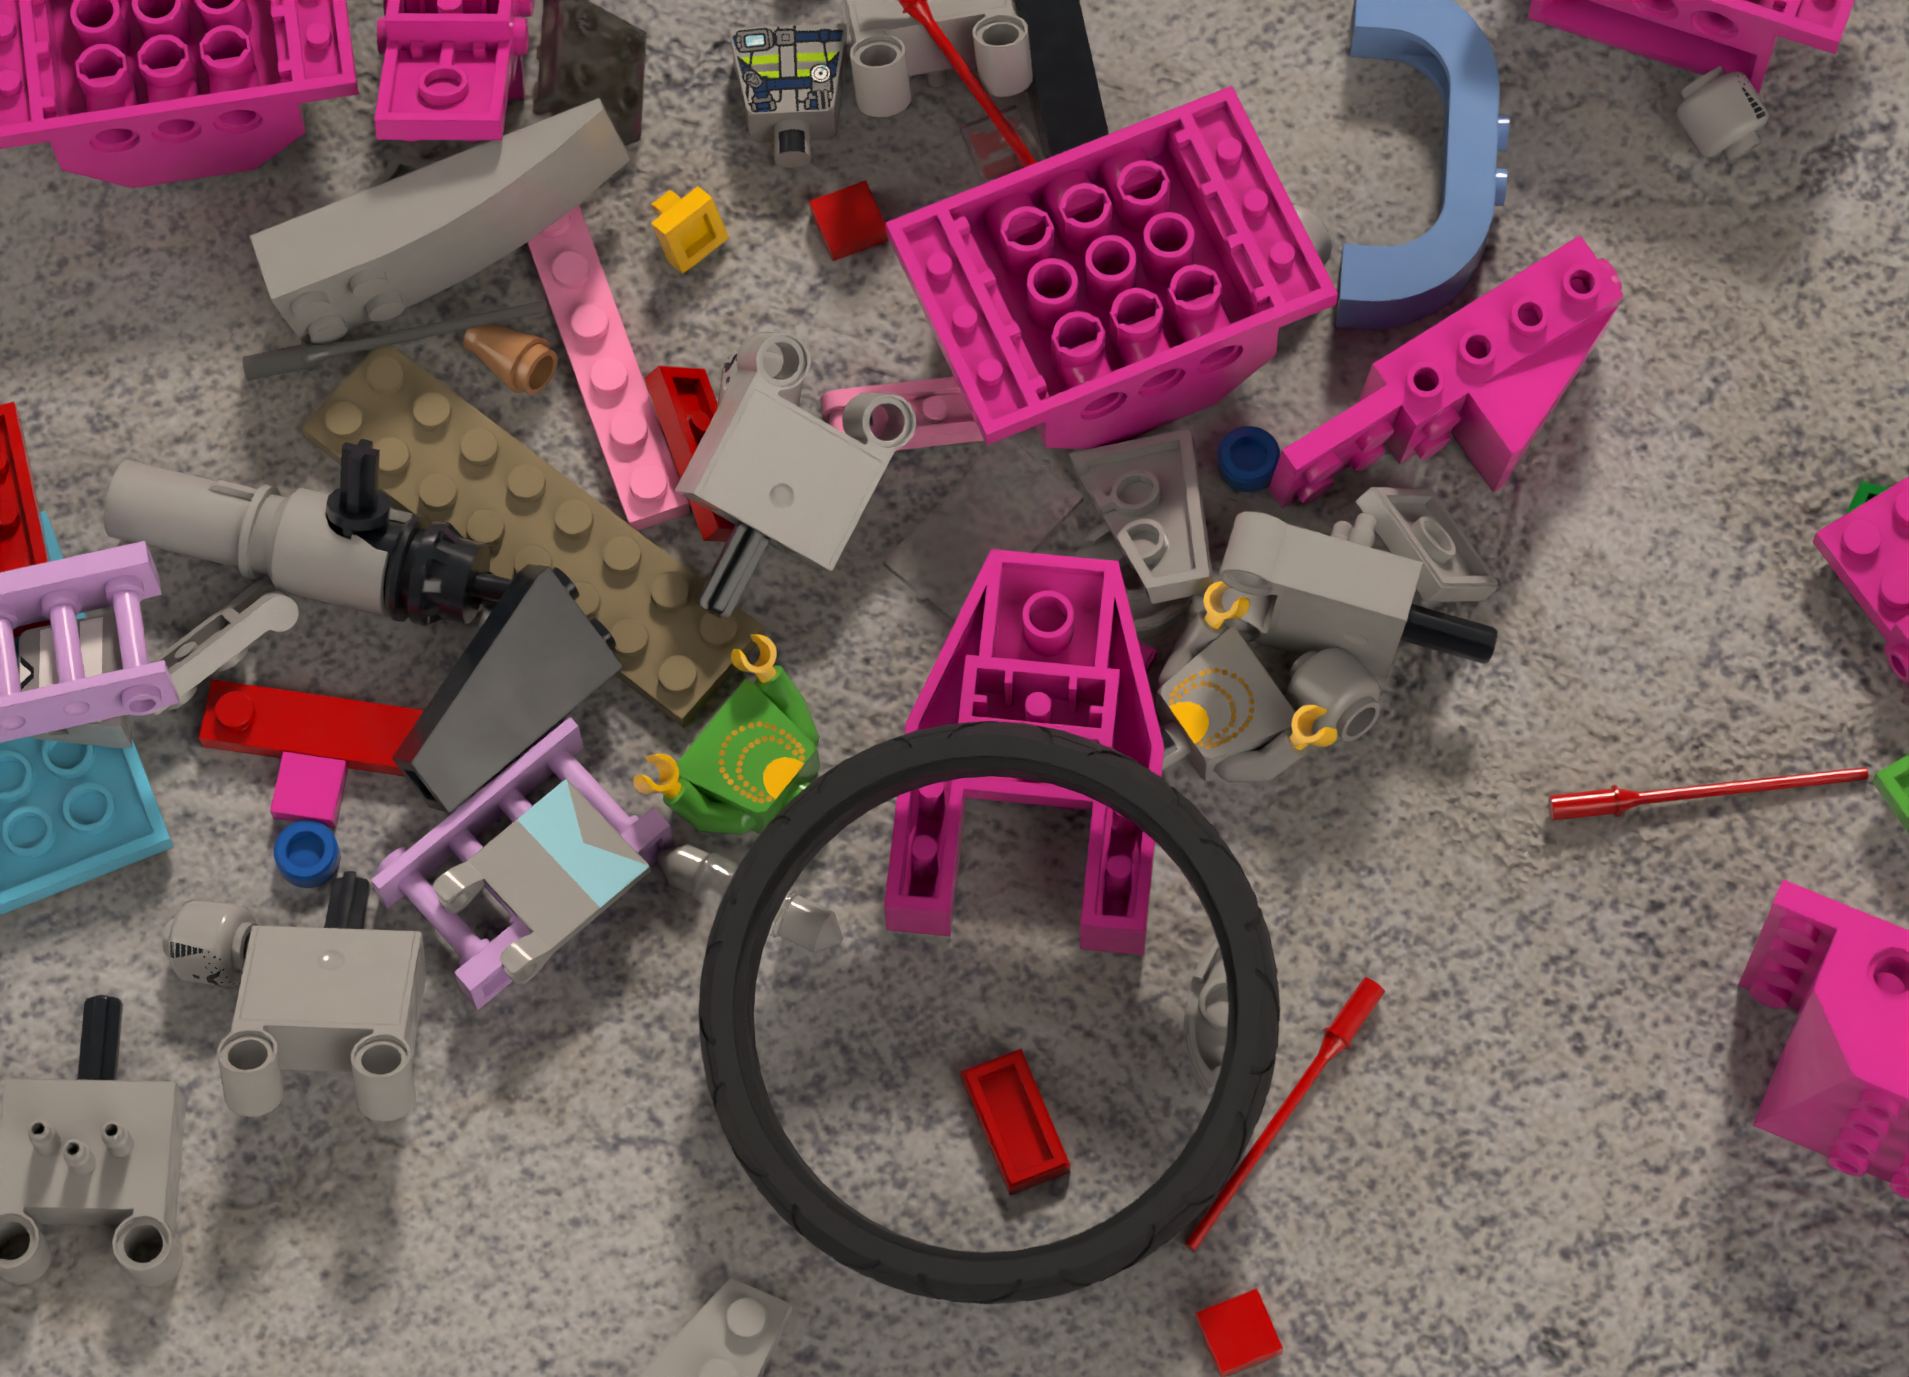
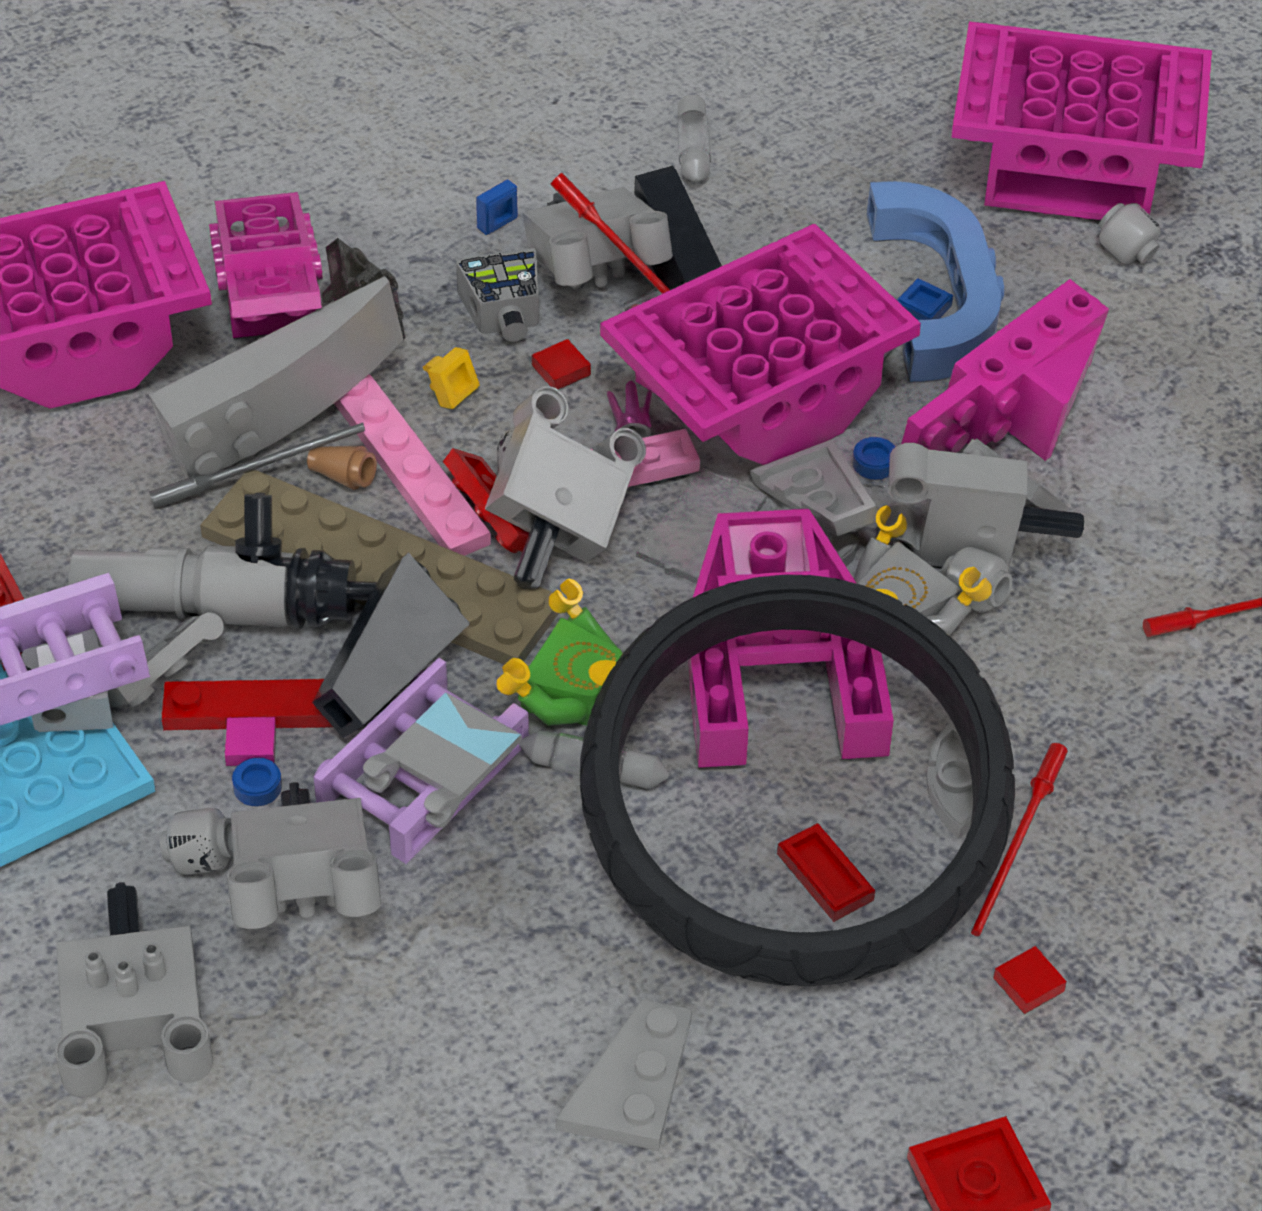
camera: 15 degrees left, 20 degrees down
(919, 347) = (634, 416): none -> flat silver piece
(1391, 187) = (925, 300): none -> blue tile

